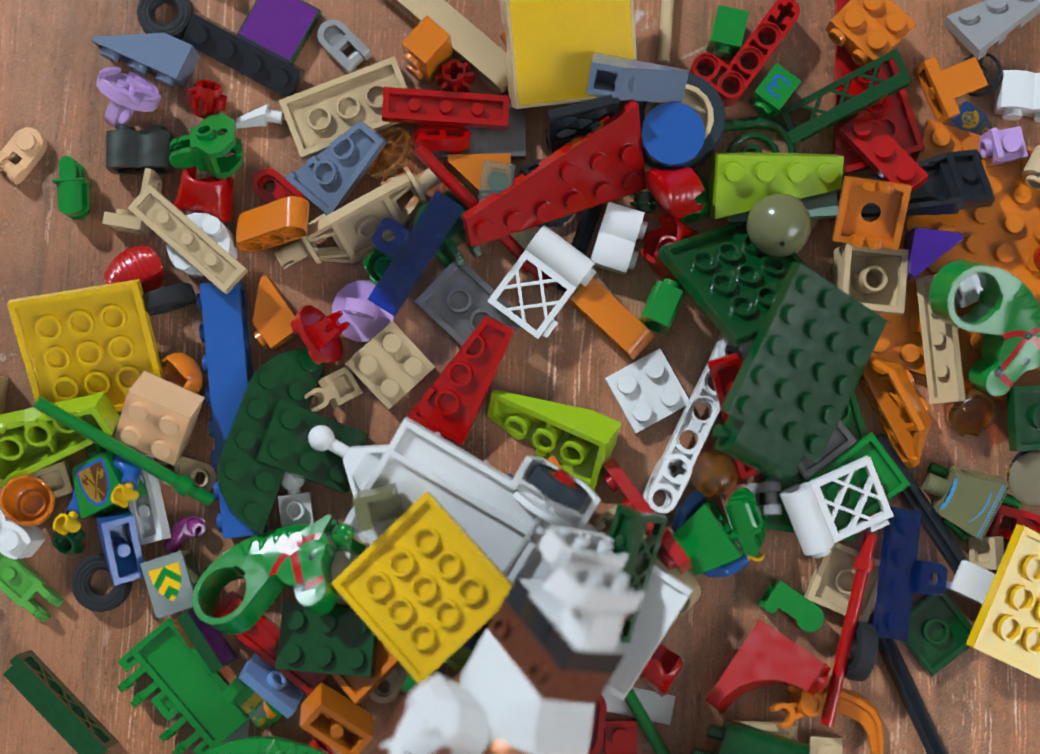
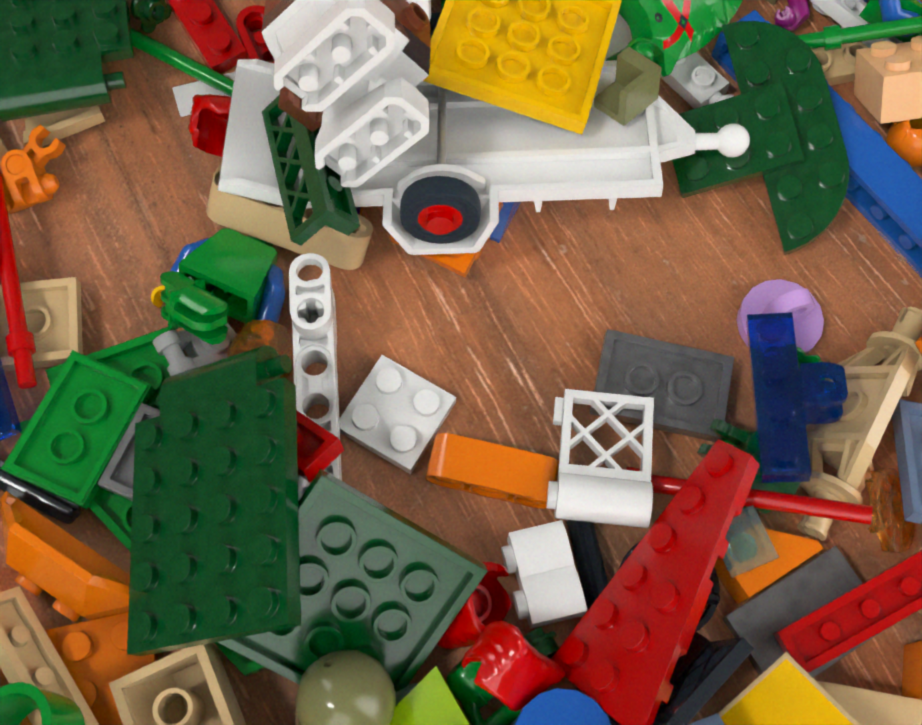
camera: 145 degrees right, 15 degrees down
(272, 316) = (873, 258): orange slope -> none
(320, 333) = (813, 255): red plate -> none
(336, 389) = (749, 218): tan plate -> none
(390, 364) = (710, 276): tan plate -> none
(443, 138) = (844, 564): red plate -> none
(455, 77) = (883, 663): red gear -> none
(460, 390) = (616, 298): red wing -> none
(574, 435) = (450, 312): lime wedge -> none
(618, 480) = (366, 285): red plate -> none
(662, 306) = (440, 504): green brick -> none
(768, 660) = (80, 189): red arch -> none
(802, 611) = (92, 264): green leg -> none
(814, 521) = (101, 349): white piece -> none

